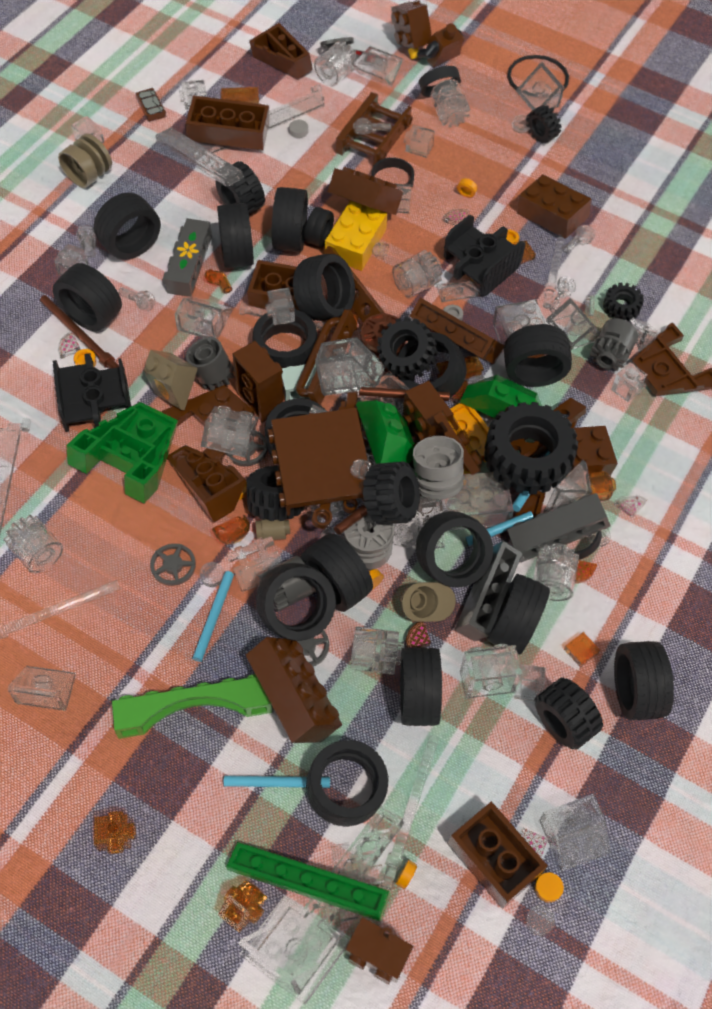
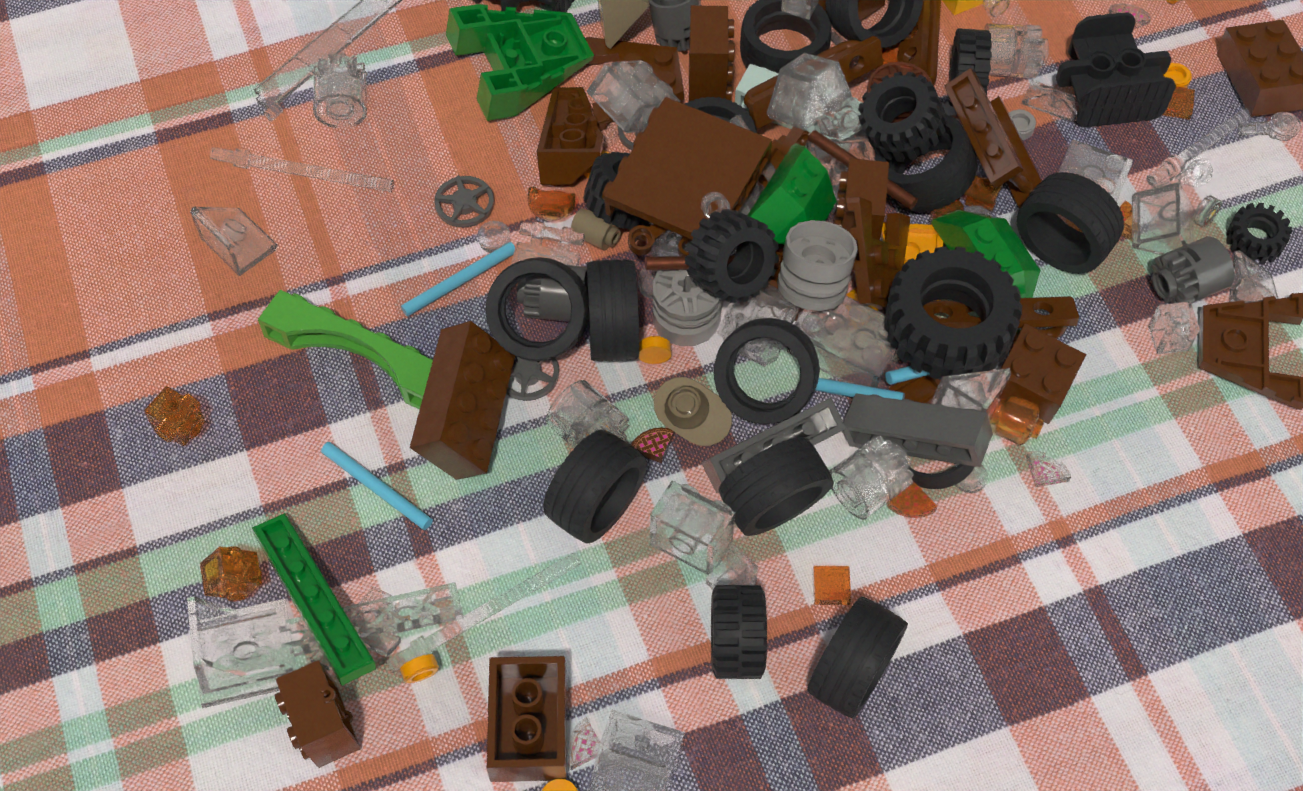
camera: 40 degrees right, 0 degrees up
(362, 755) = (436, 491): black tyre -> none
(404, 292) = (971, 51): none -> black tyre

